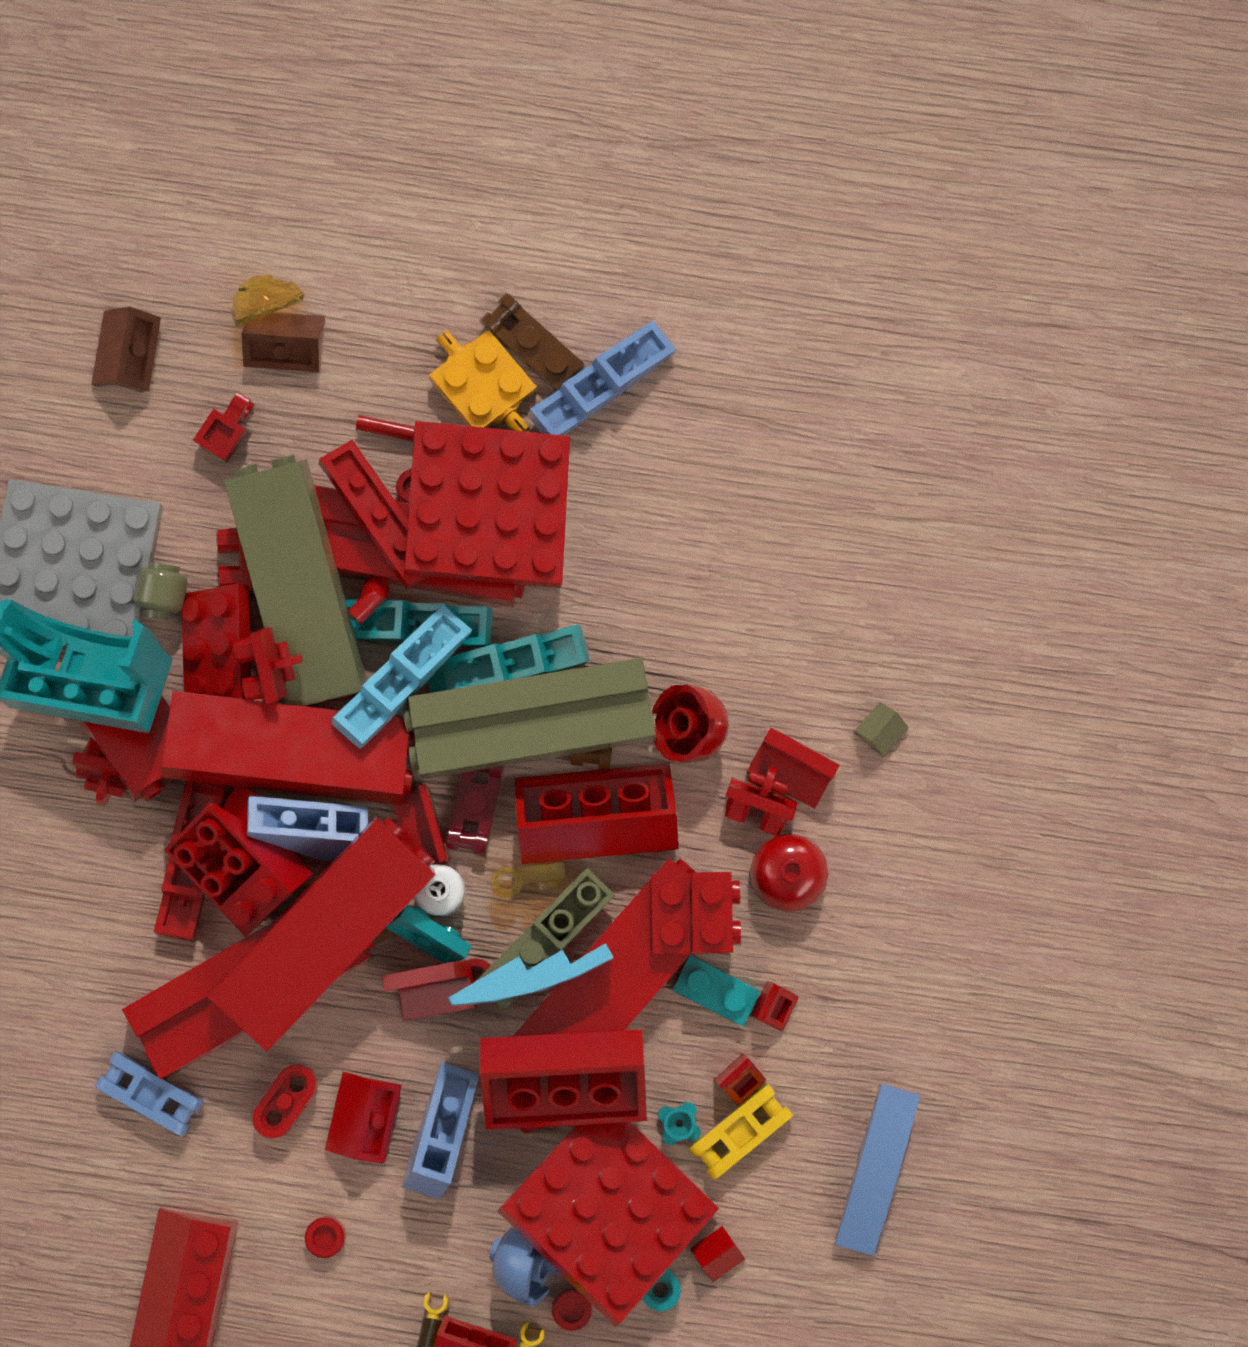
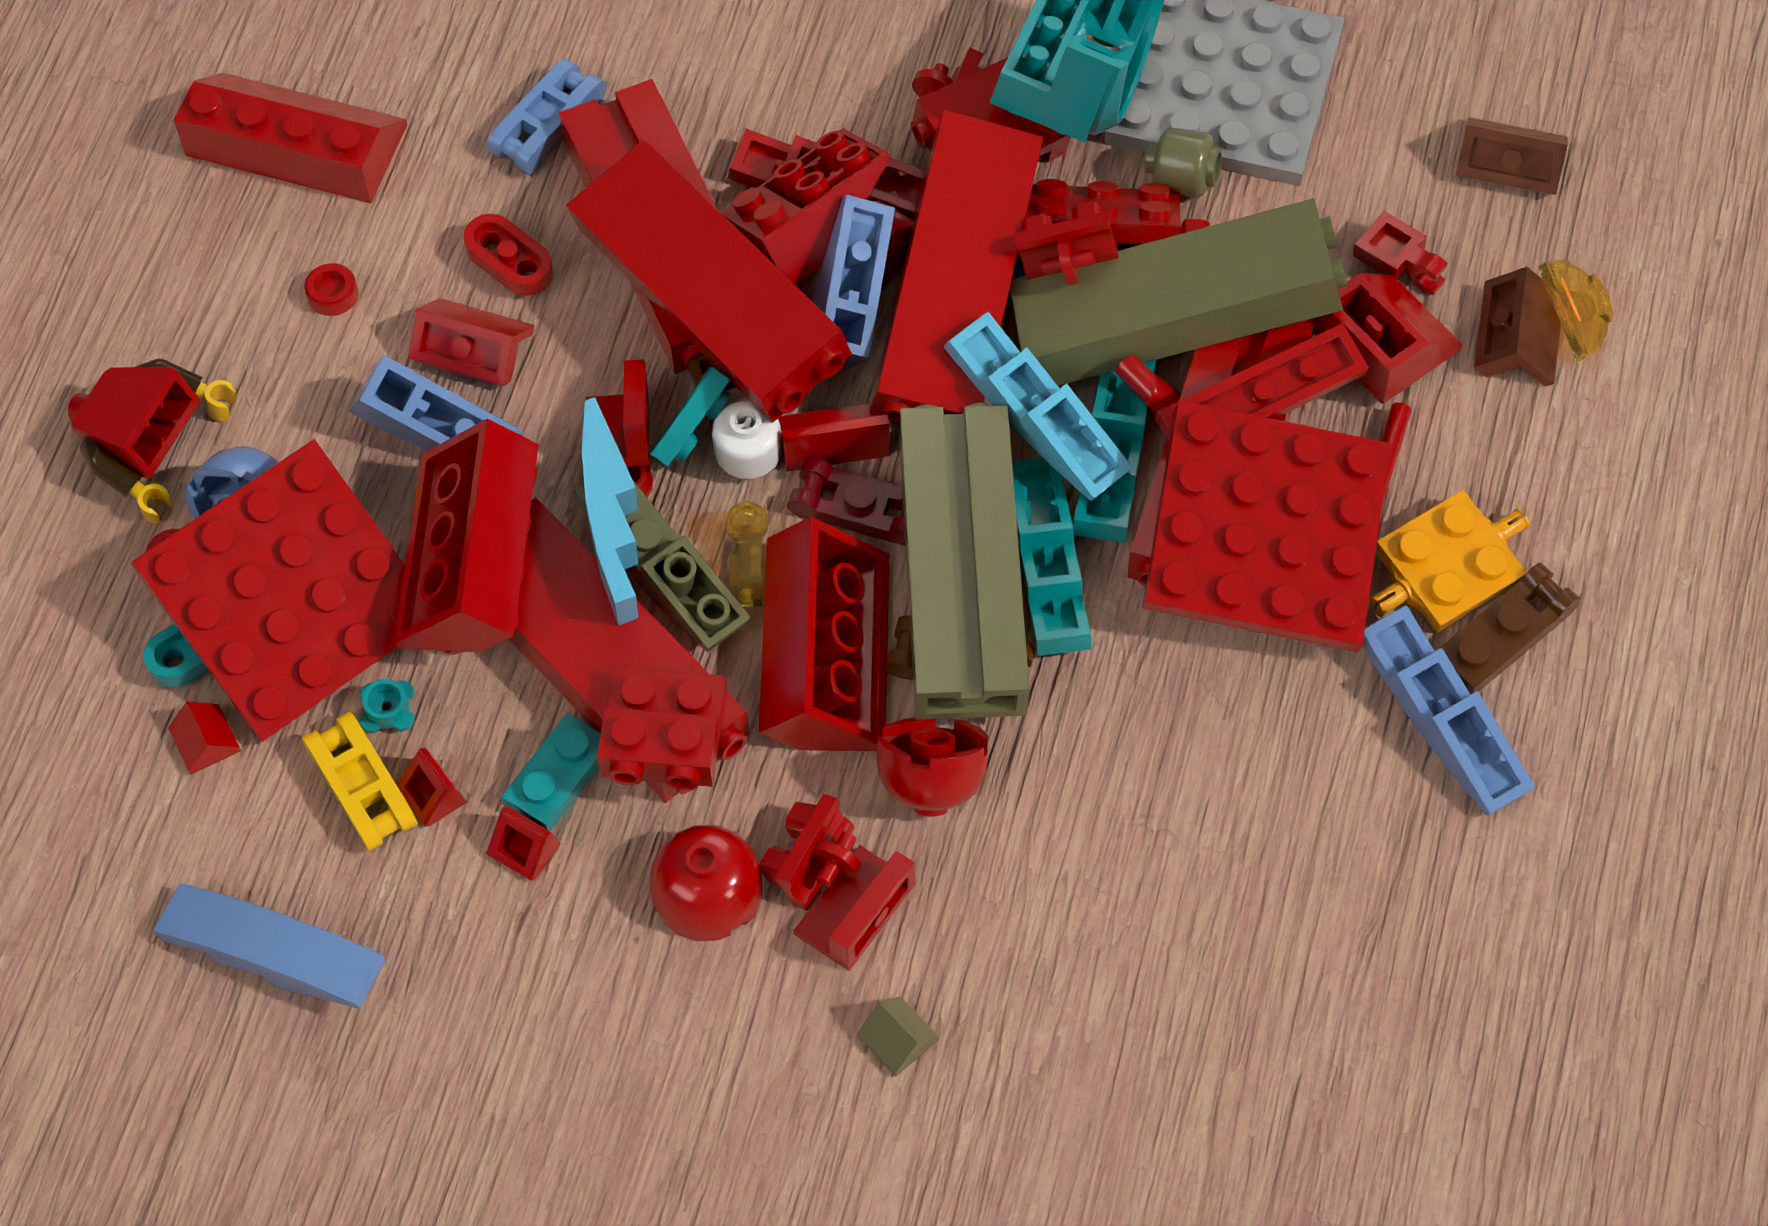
camera: 100 degrees right, 20 degrees down
(301, 426) = (1391, 332): none -> red slope

